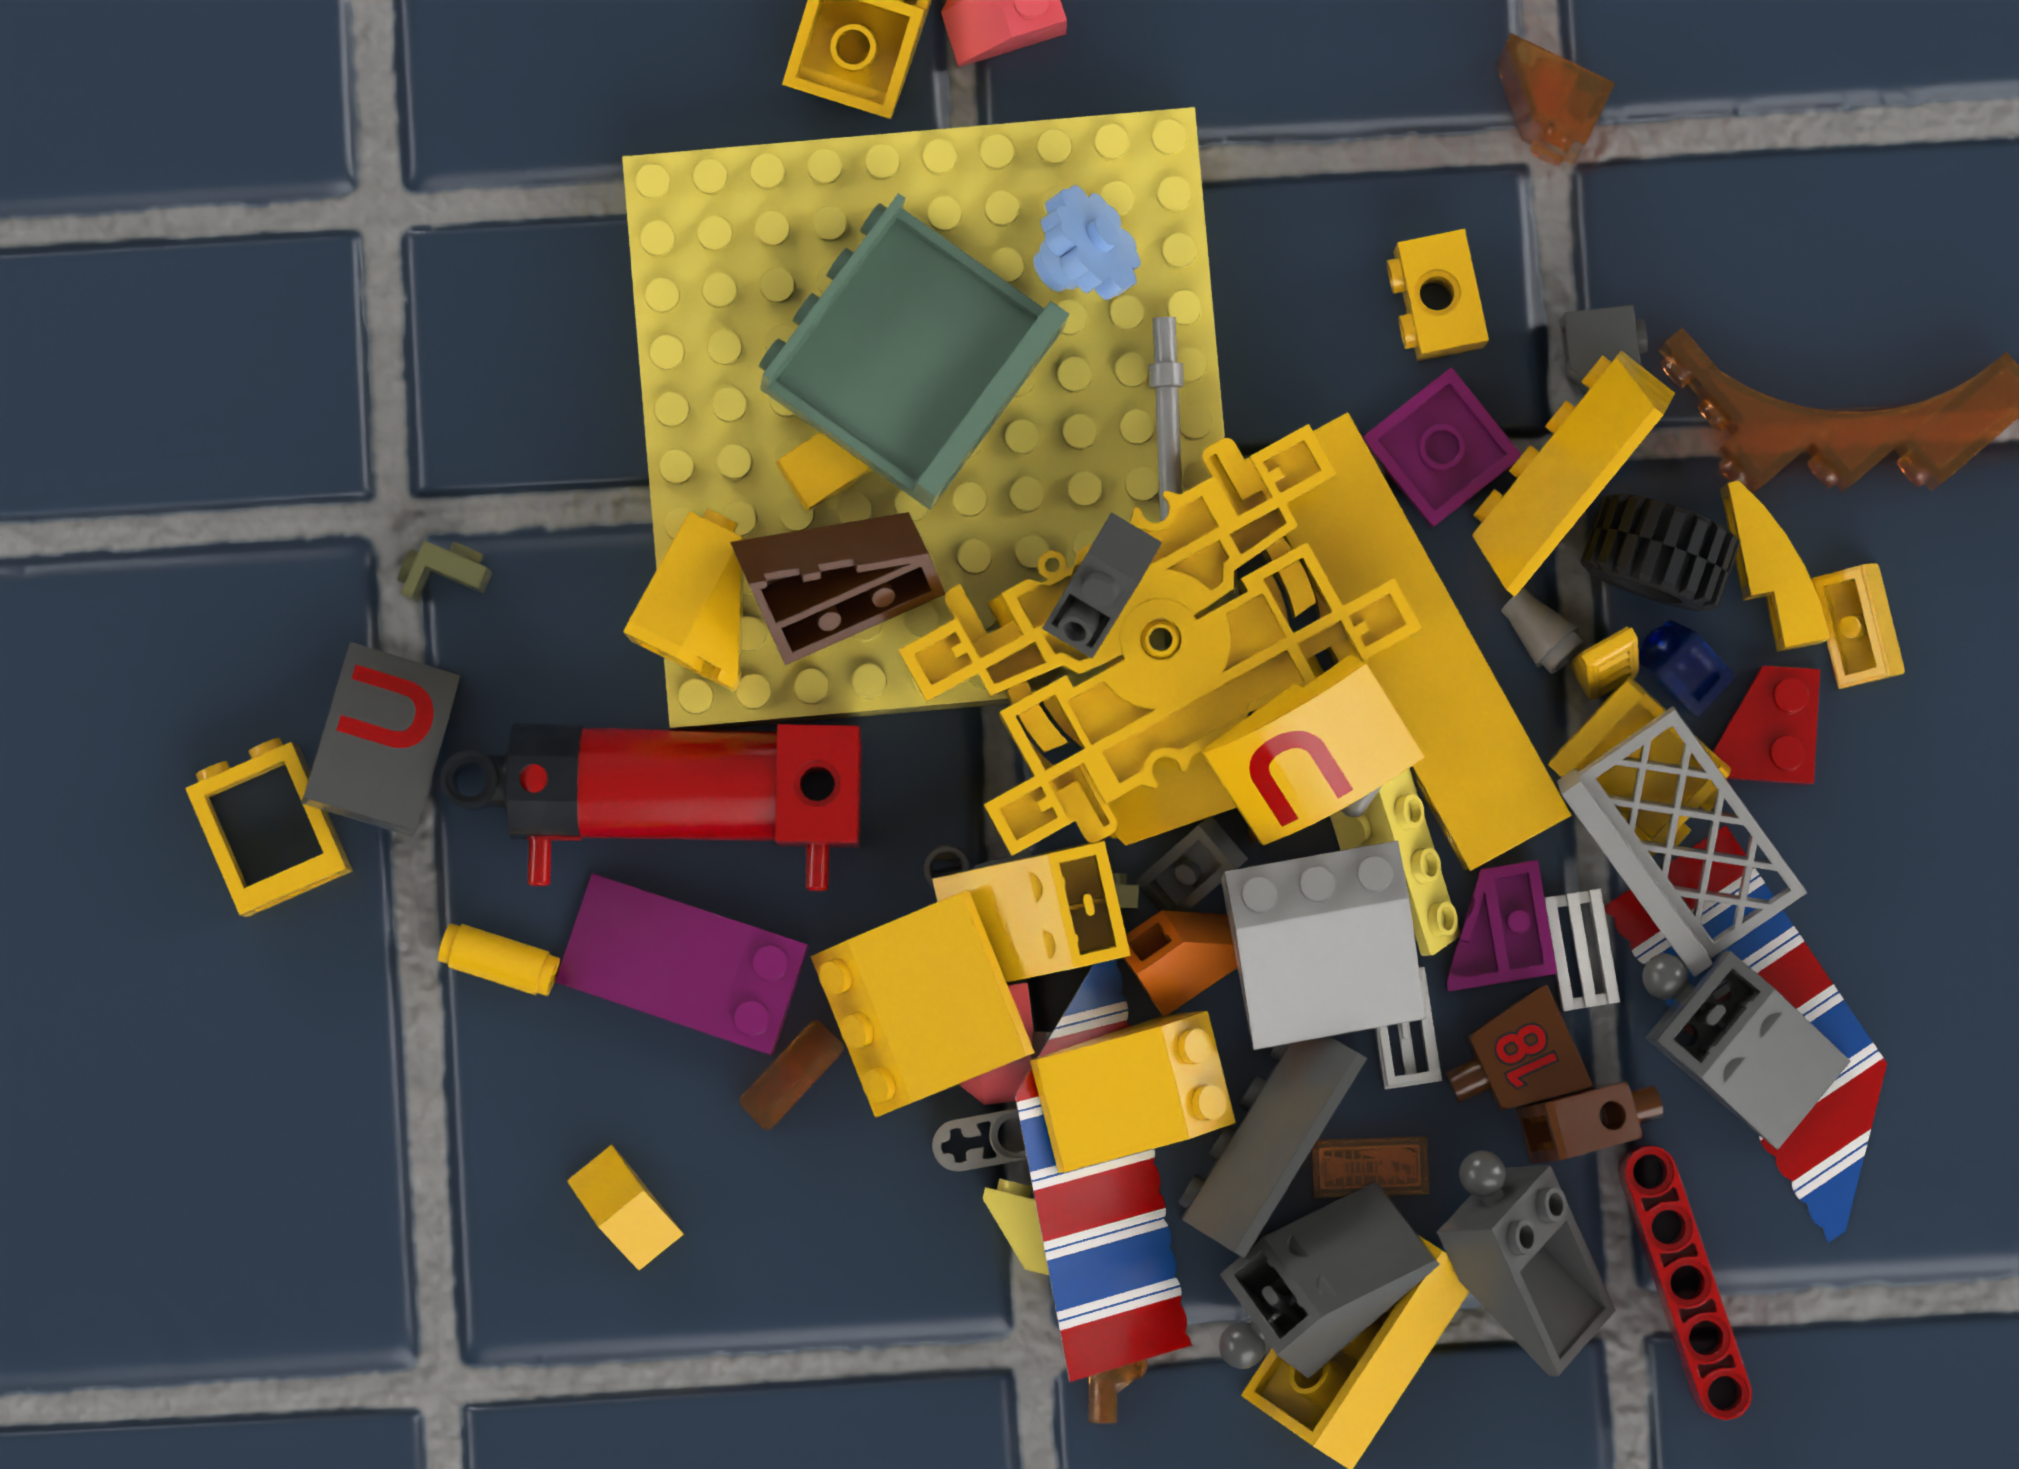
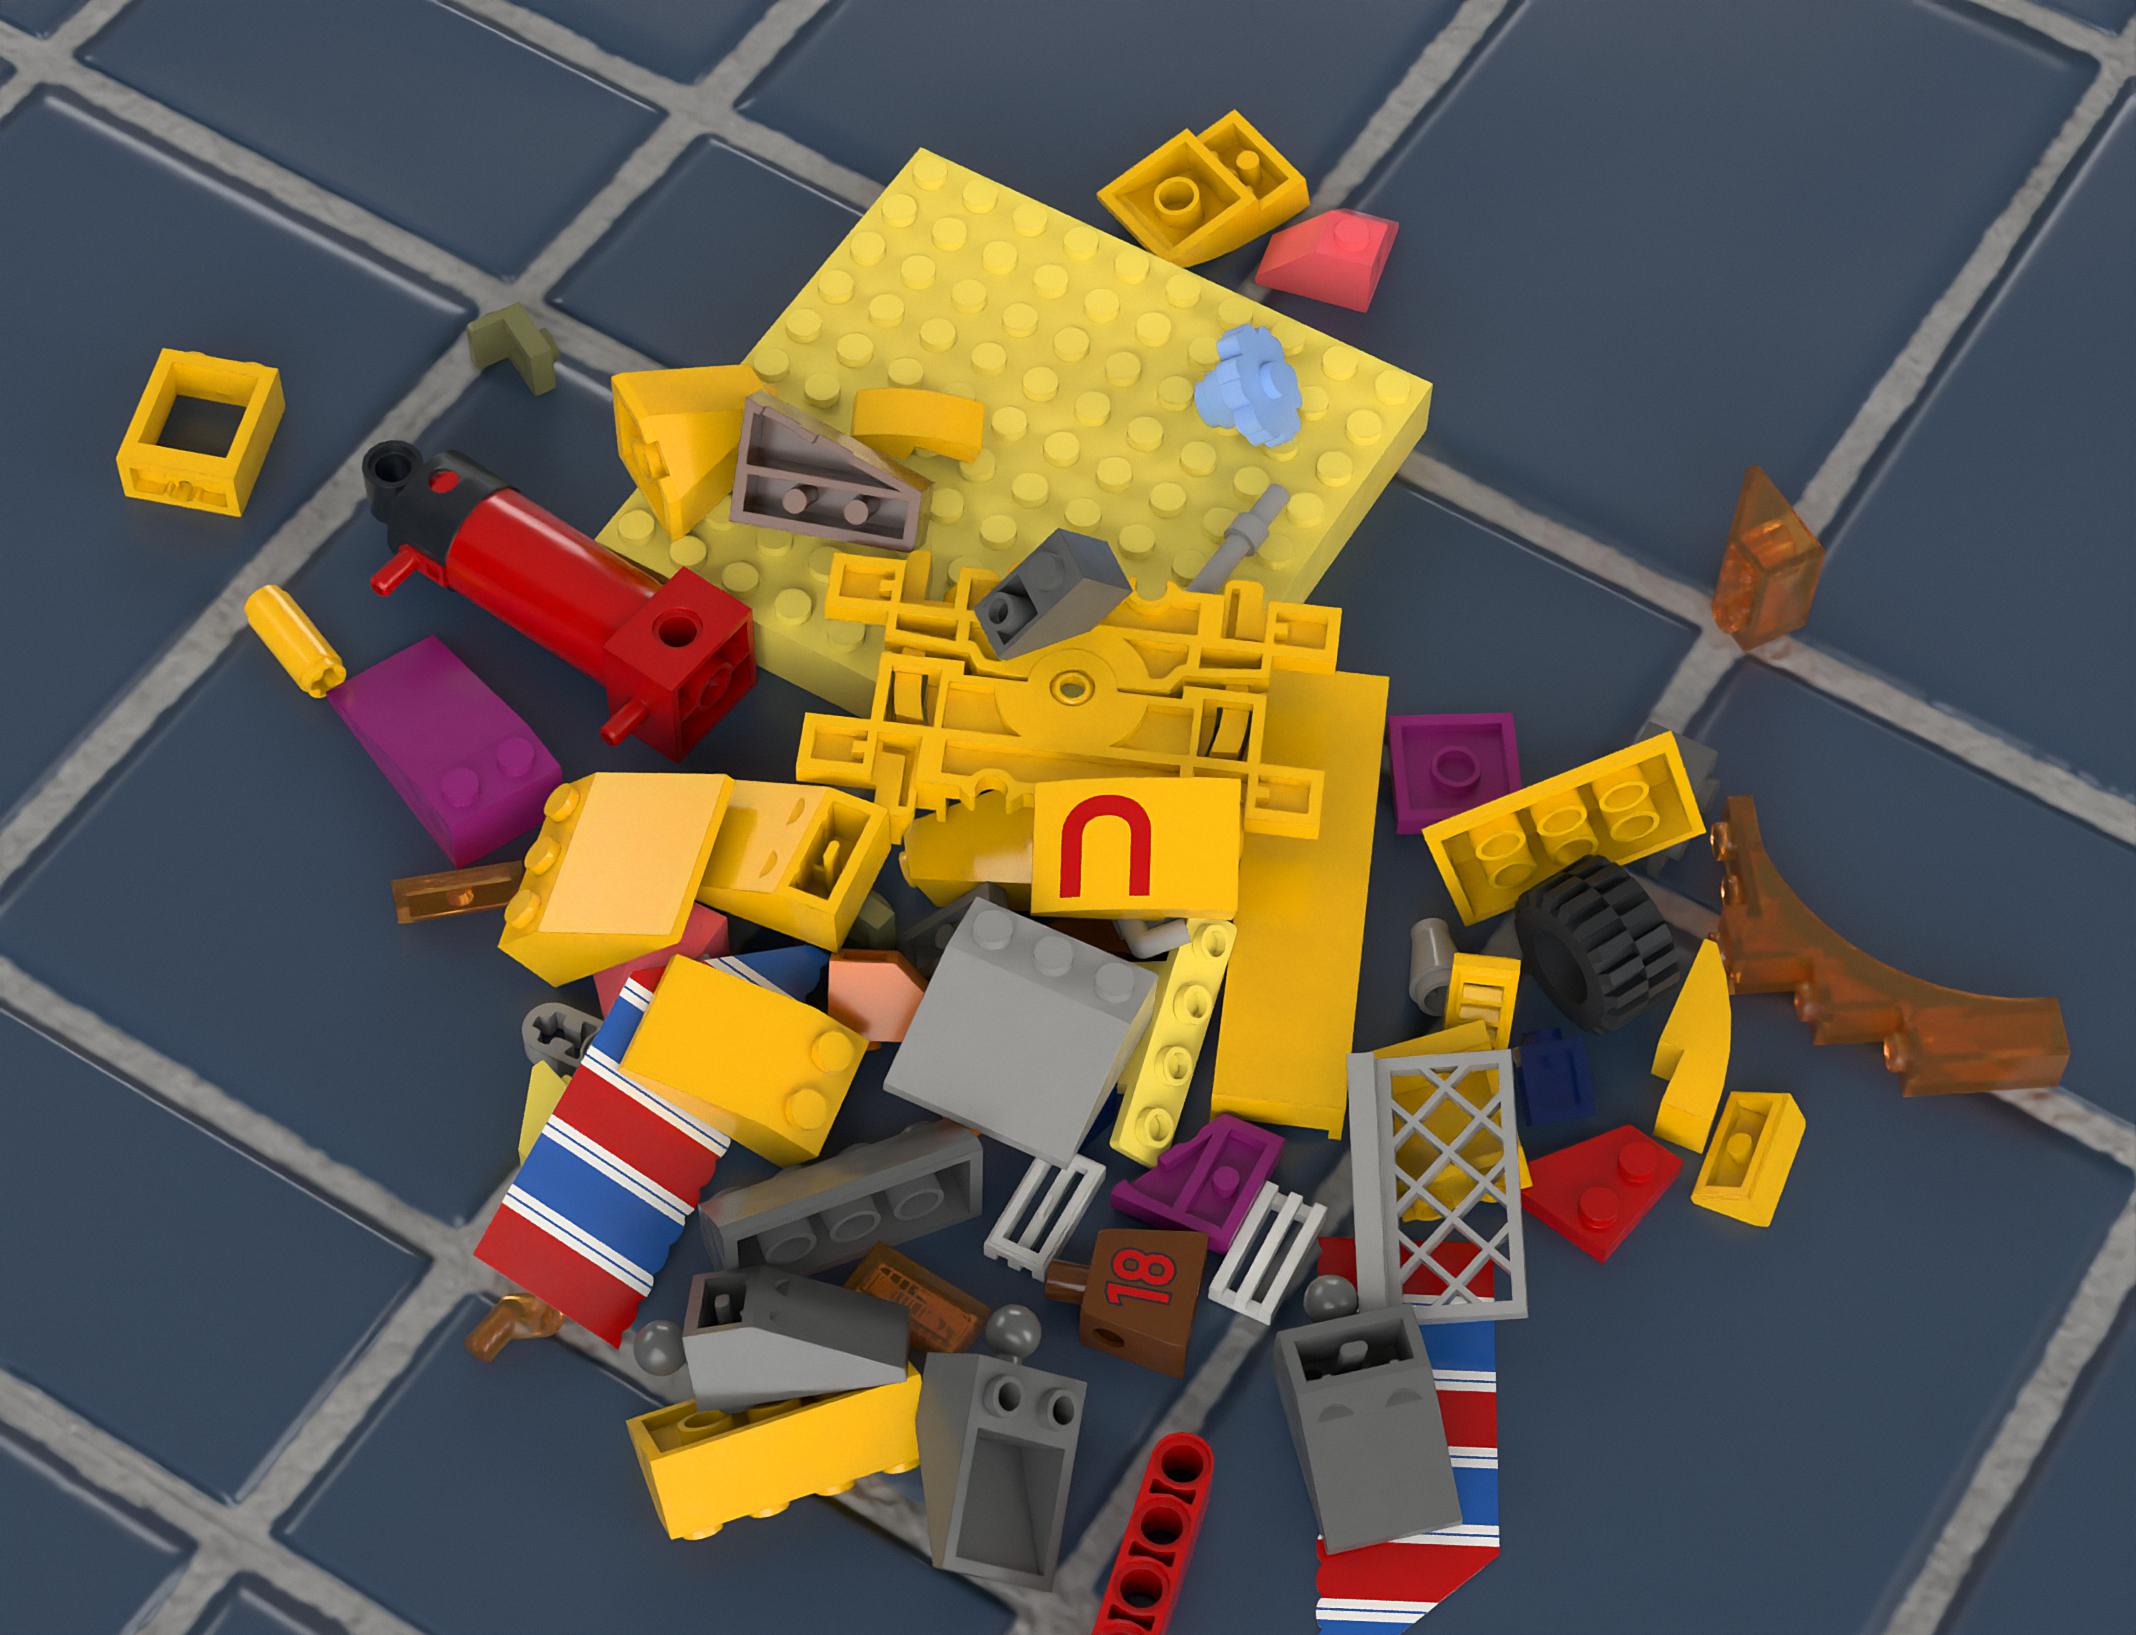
camera: 35 degrees right, 30 degrees down
(381, 739) = (338, 406): dark grey slope -> none
(624, 1208) = (217, 898): yellow slope -> none
(909, 353) = (1035, 377): sand green panel -> none
(1443, 261) = (1564, 636): yellow brick -> none
(1573, 1126) = (1157, 1379): reddish brown torso -> none

